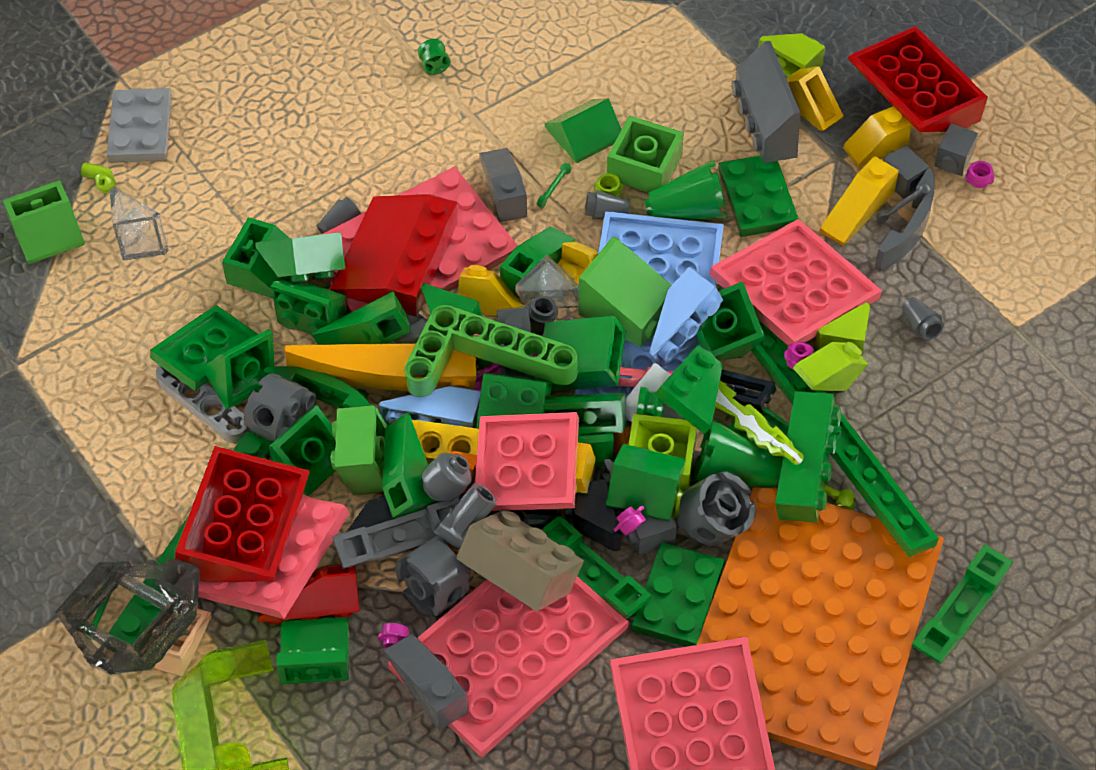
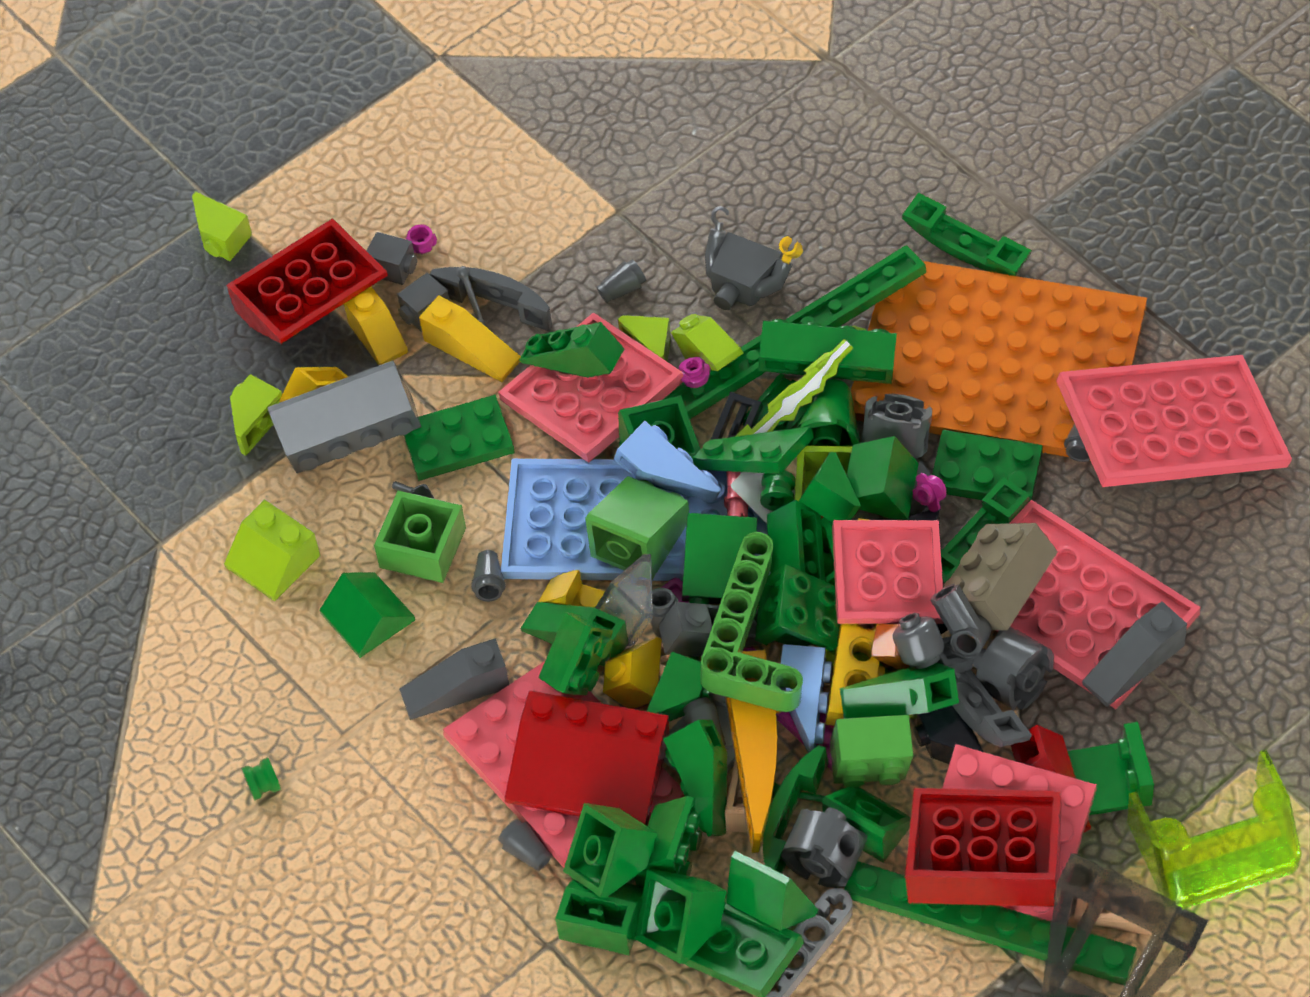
camera: 90 degrees left, 0 degrees up
(238, 307) = (678, 913): none -> green slope
(392, 634) = (1080, 705): dark pink plate -> none
(487, 238) = (576, 655): none -> green slope
(565, 169) = (429, 626): green hinge -> none
(609, 184) = (458, 570): lime plate -> none
(631, 427) = (831, 491): none -> green slope
(653, 68) = (271, 550): none -> lime slope
(689, 196) = (478, 485): green cone -> none
(695, 161) = (422, 490): none -> dark grey hand
(825, 263) = (578, 350): none -> green slope
(931, 409) = (743, 268): none -> dark grey torso
(996, 34) = (220, 227): none -> lime slope

